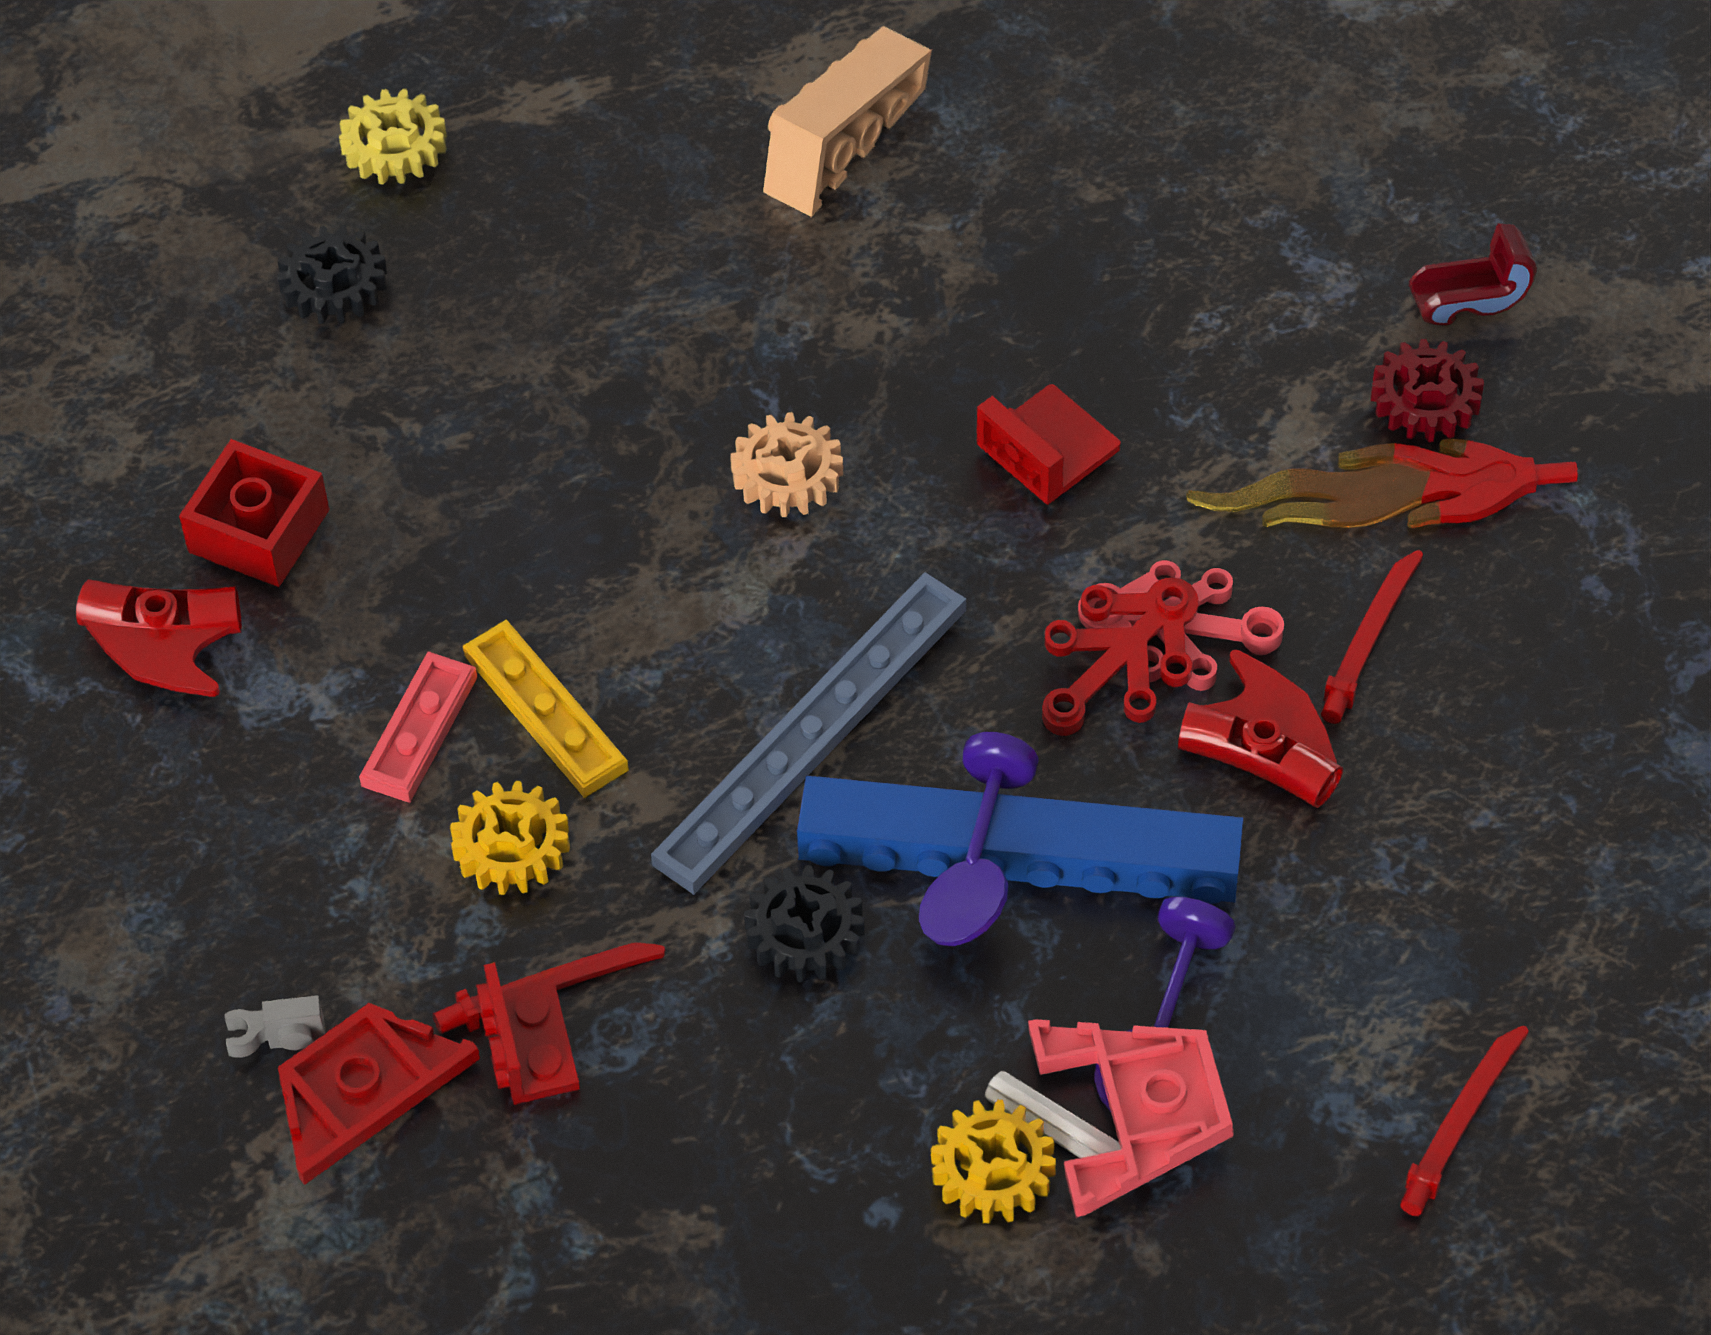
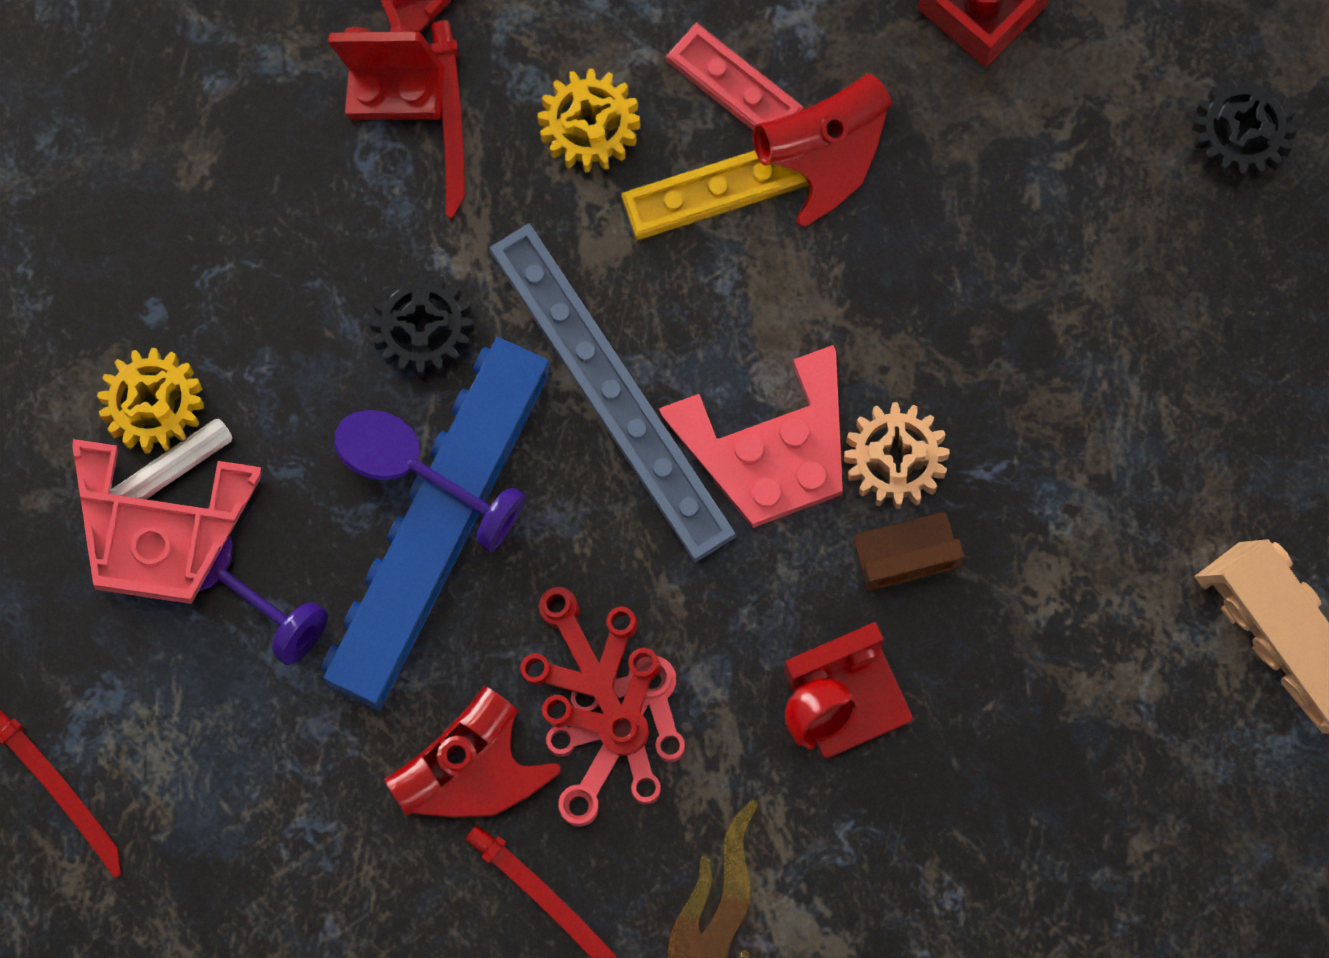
camera: 110 degrees right, 20 degrees up
(463, 613) = (828, 143): none -> red pin
(825, 565) = (776, 463): none -> coral wing
(883, 433) = (908, 551): none -> reddish brown panel
(1086, 433) = (819, 711): none -> red hair

